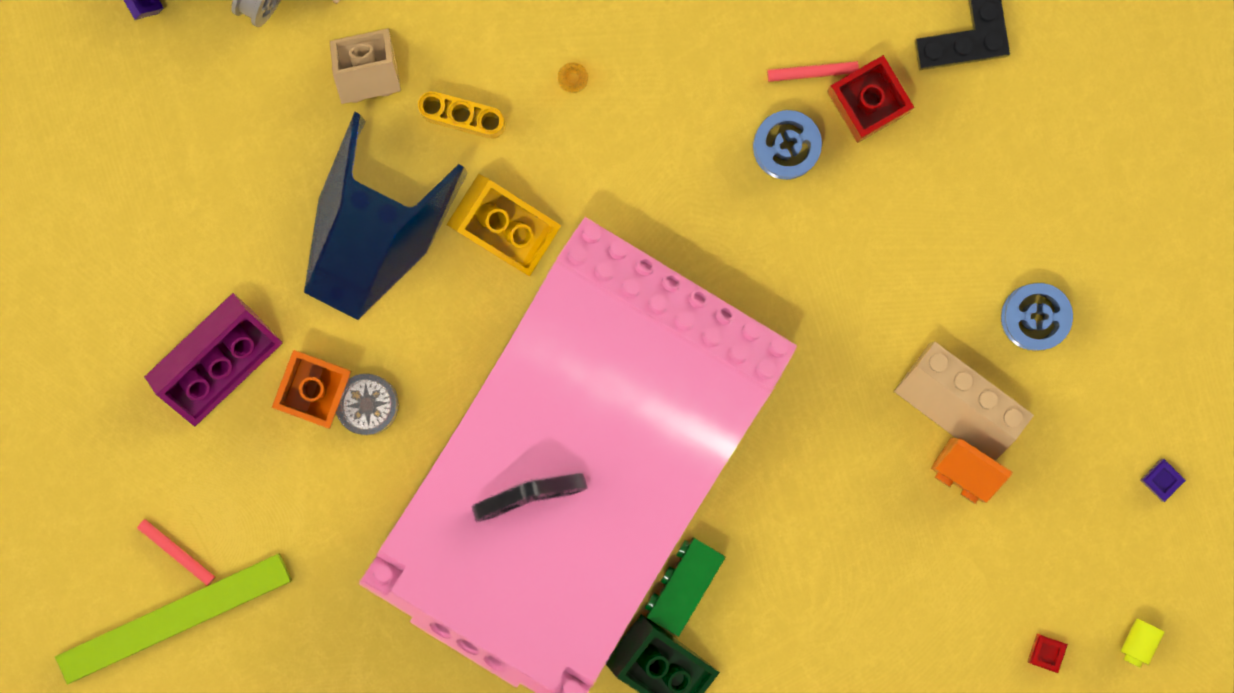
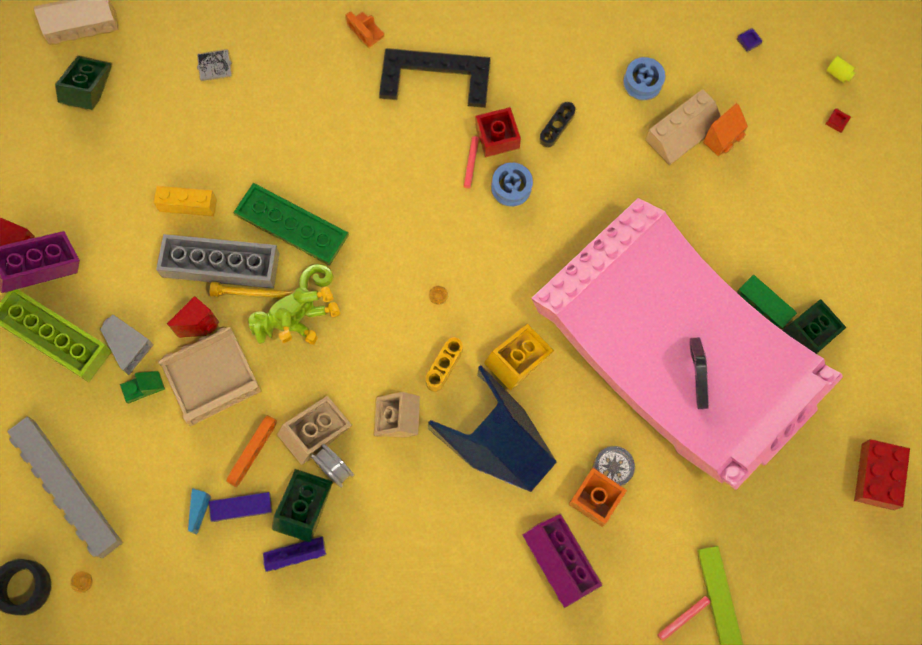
camera: 75 degrees left, 15 degrees down
(898, 179) = (558, 116): none -> black beam

